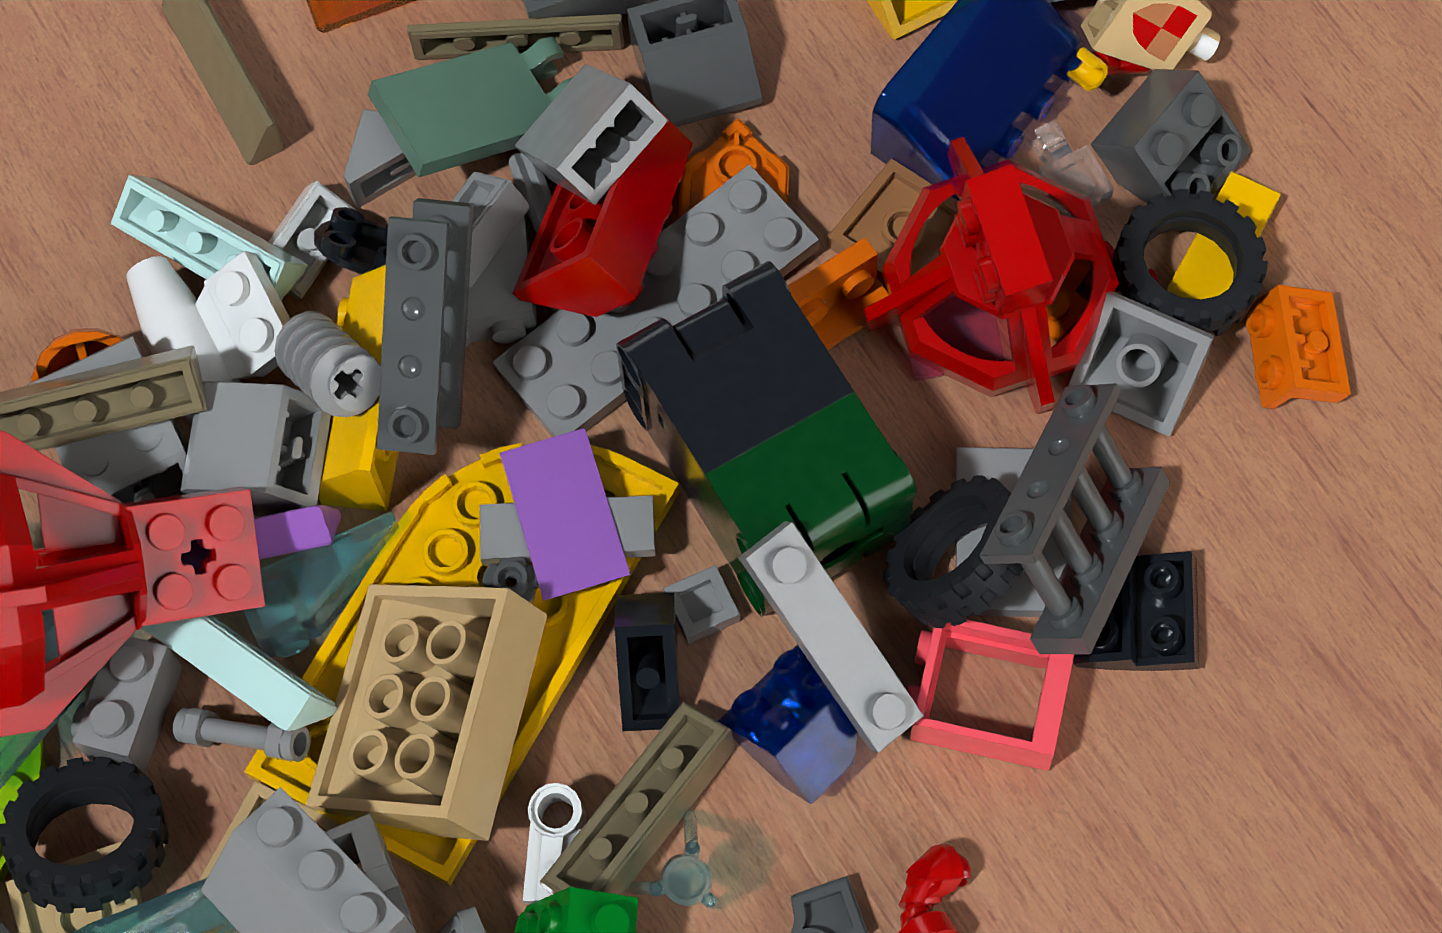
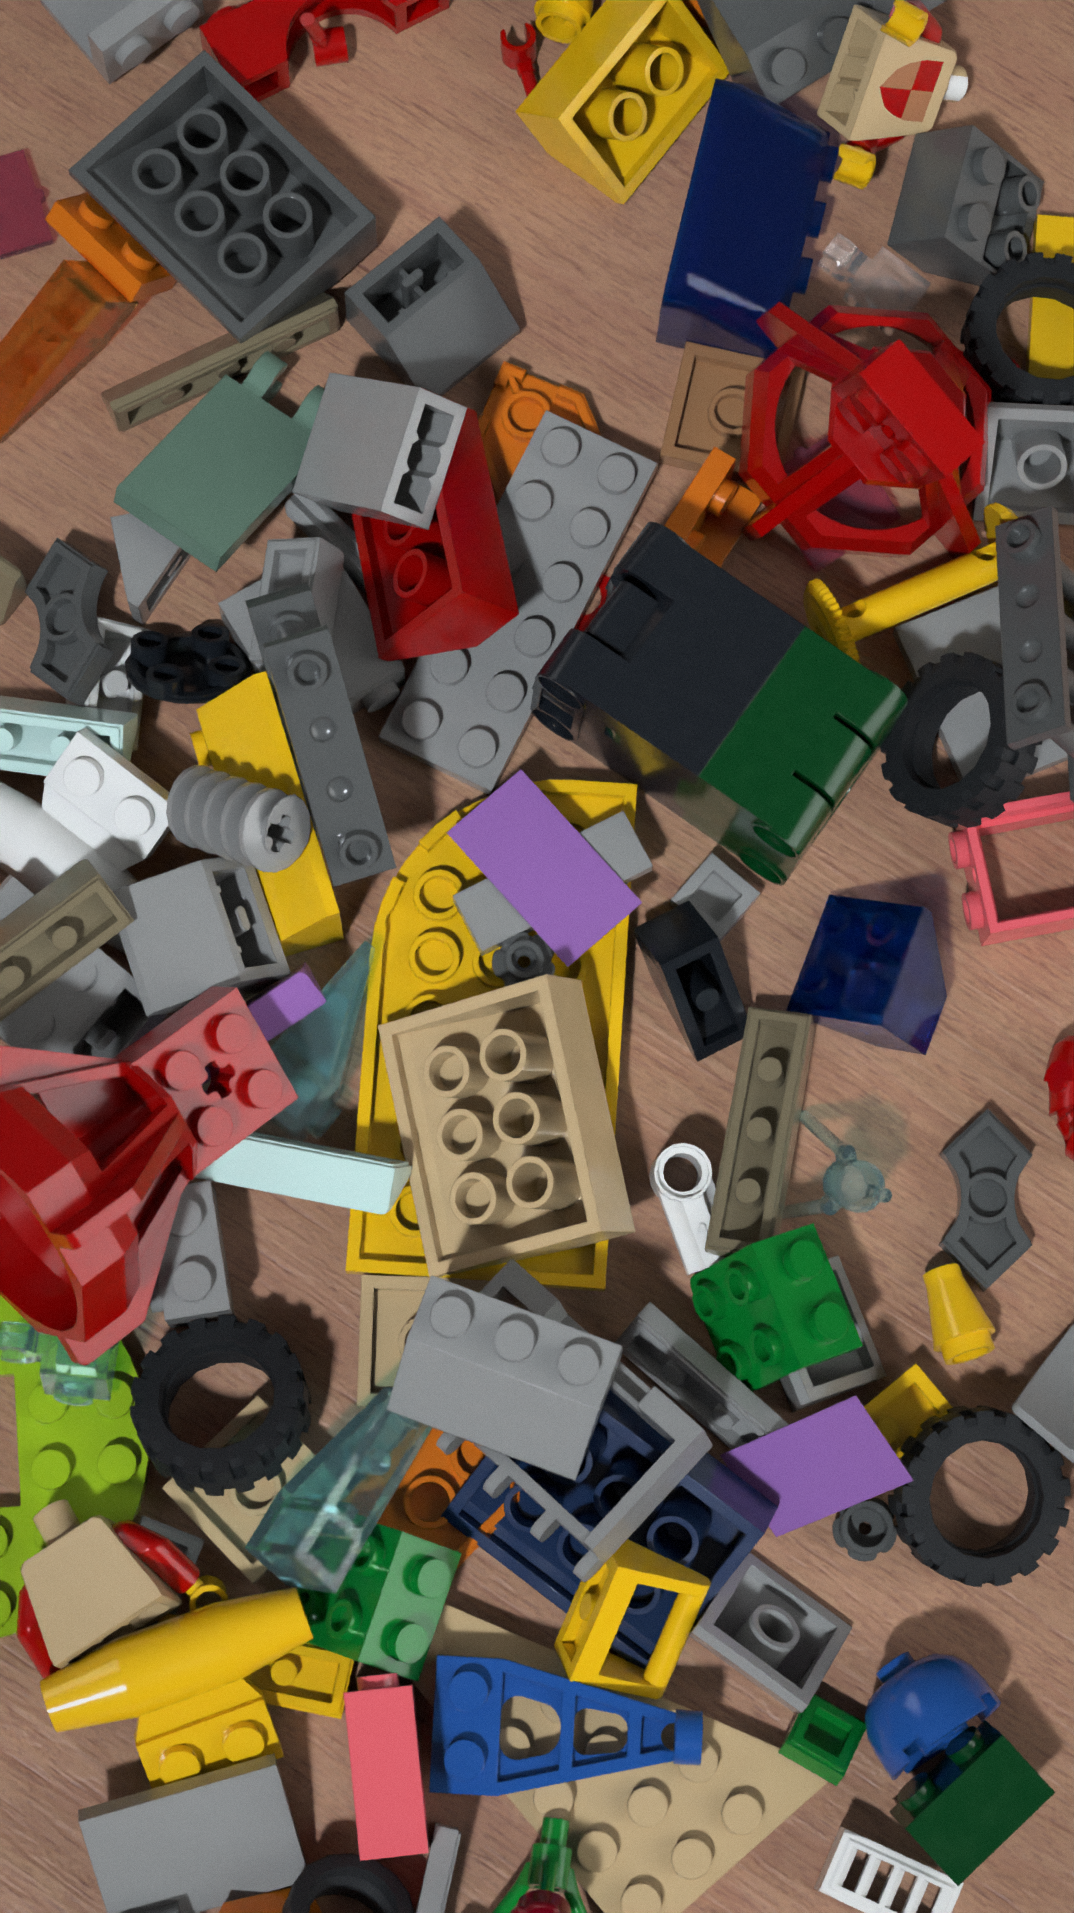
camera: 35 degrees left, 10 degrees up
(204, 728) = (276, 1245): light grey bar -> none
(290, 188) = (70, 643): none -> dark grey tile
(831, 636) = (888, 884): light grey plate -> none
(962, 424) = (907, 598): none -> yellow hose

